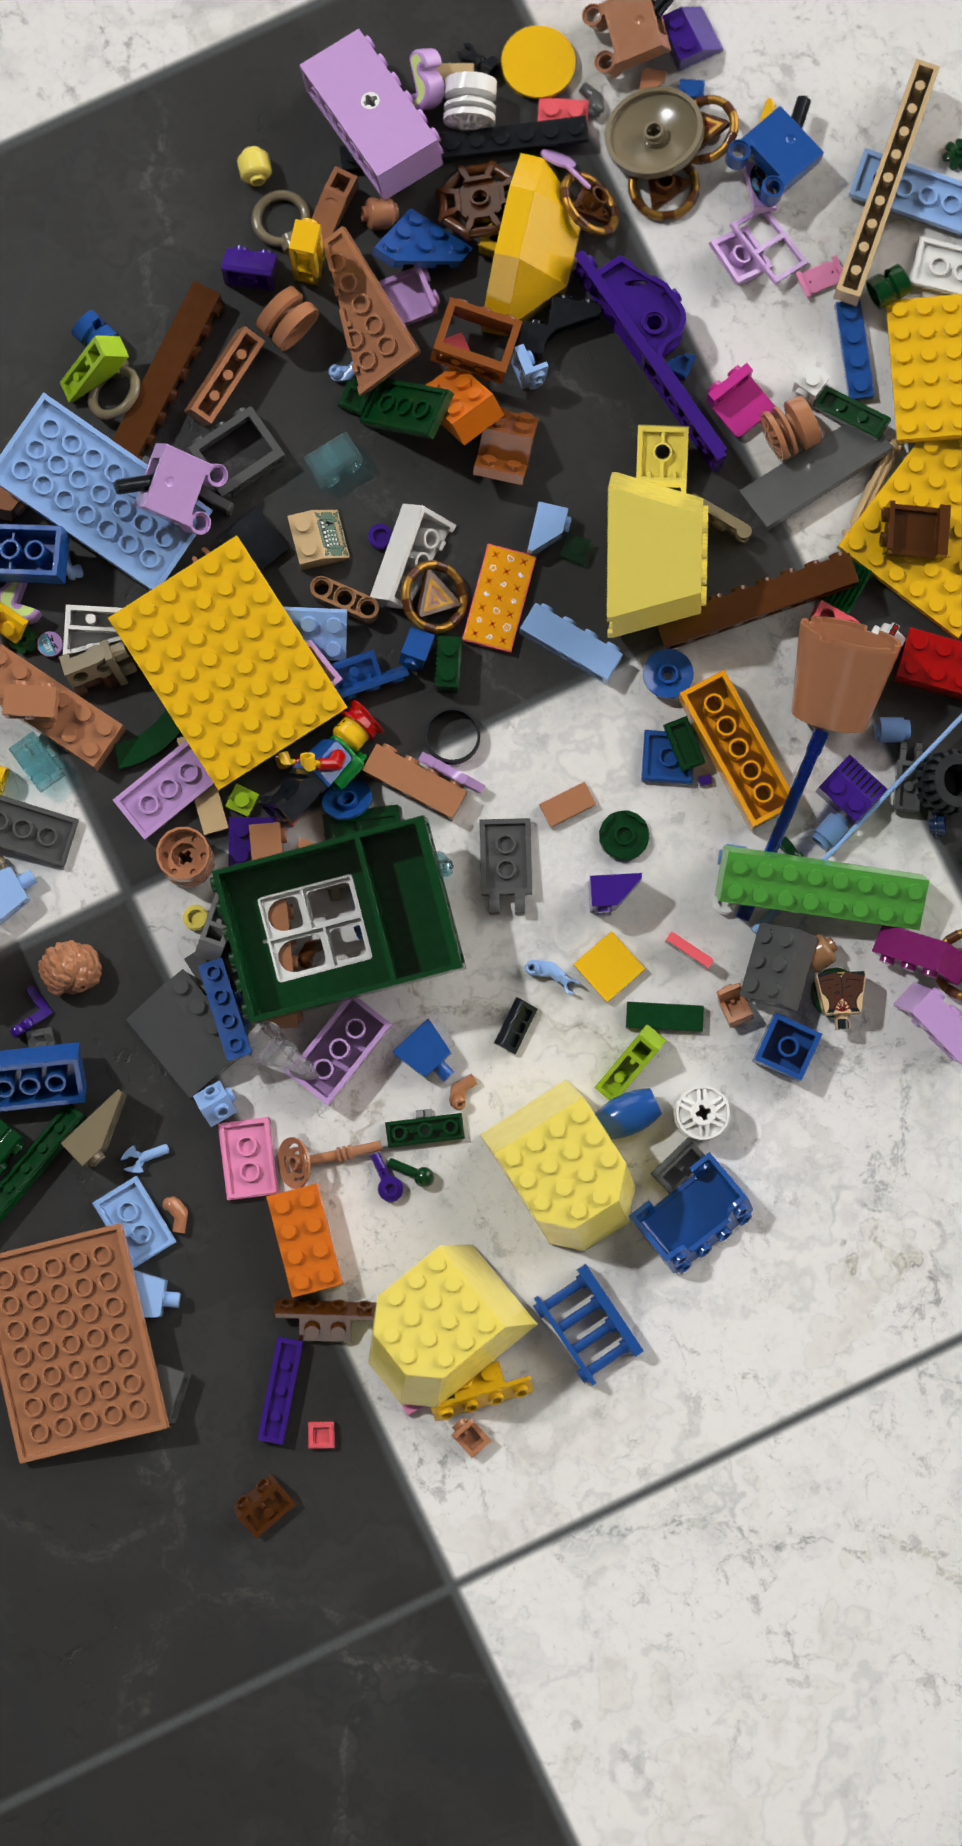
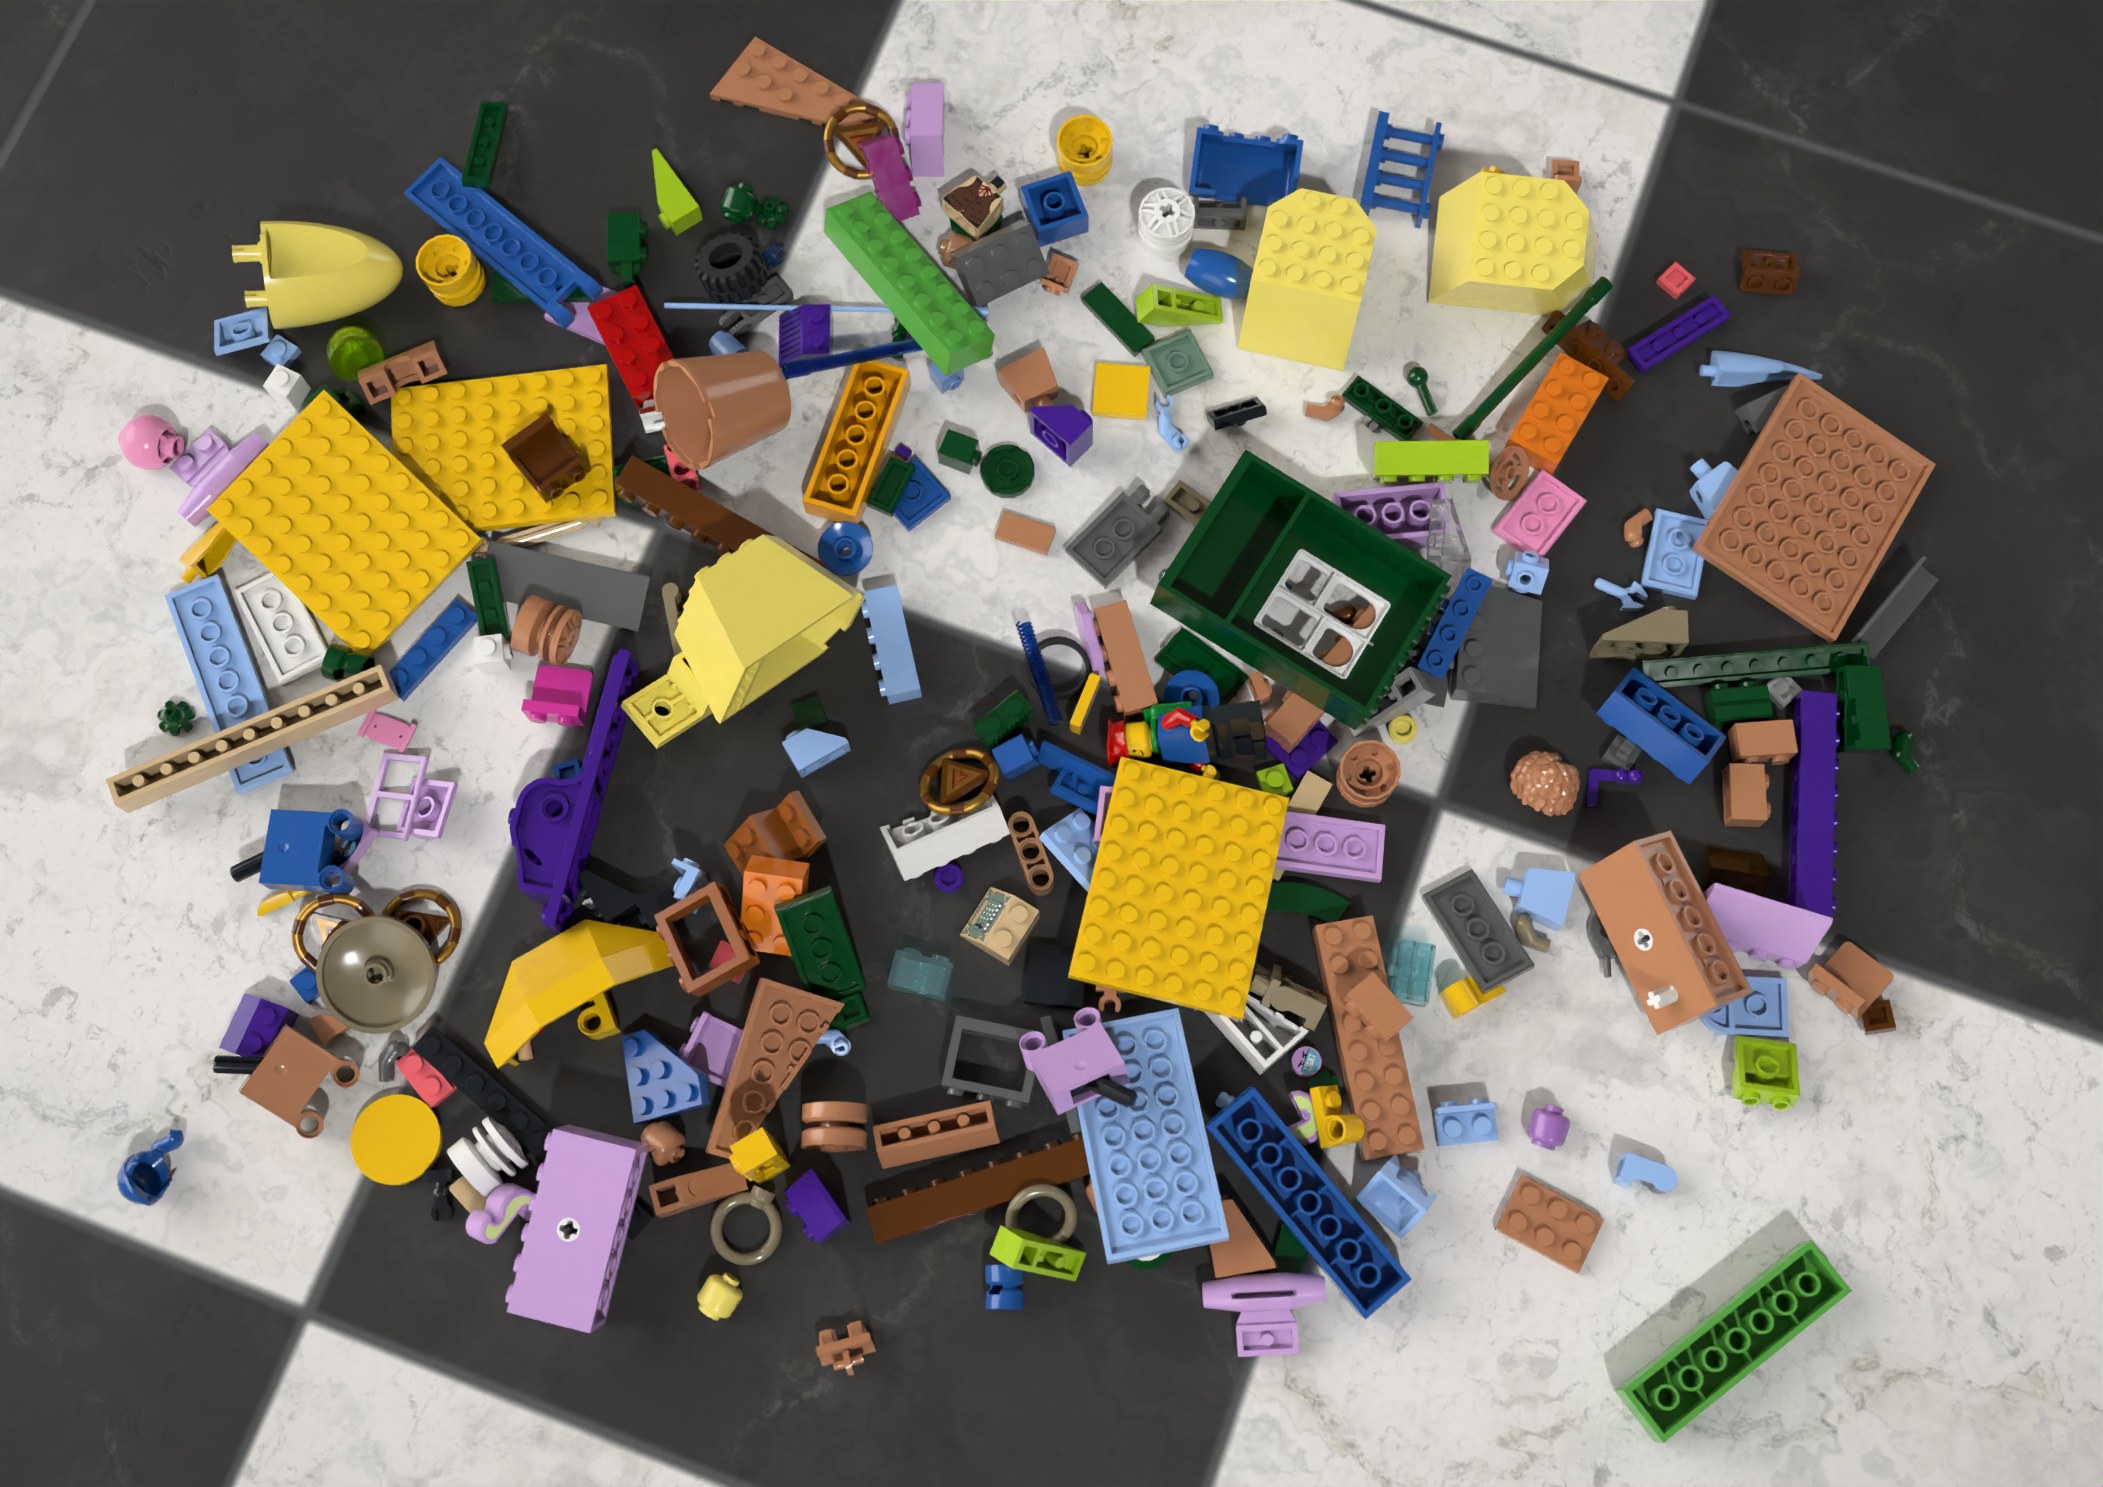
camera: 130 degrees left, 10 degrees down
(159, 203) = (845, 1352): none -> nougat hips
(214, 1409) = (1743, 369): none -> light blue piece
(351, 1112) = (1430, 461): none -> lime brick
(358, 1345) = (1590, 298): none -> dark green piece
(390, 1187) = (1450, 395): dark purple plate -> none
(410, 728) = (1085, 703): none -> yellow tile
(425, 1052) = (1325, 459): blue torso -> none
(448, 714) = (1041, 671): none -> clear blue piece
(465, 206) = (589, 1061): reddish brown plate -> none
(480, 930) = (1186, 503): none -> dark tan plate
(499, 598) = (908, 736): light orange tile -> none
(565, 162) = (472, 1027): lavender piece -> none
(590, 205) = (493, 968): reddish brown piece -> none
(593, 1025) = (1177, 363): none -> sand green tile
(666, 813) = (959, 452): none -> dark green brick
(670, 909) = (1030, 381): none -> nougat torso
(689, 950) = (1050, 341): coral tile -> none
(826, 1107) = (1087, 137): none -> yellow wheel
(830, 831) = (854, 324): medium blue brick -> none

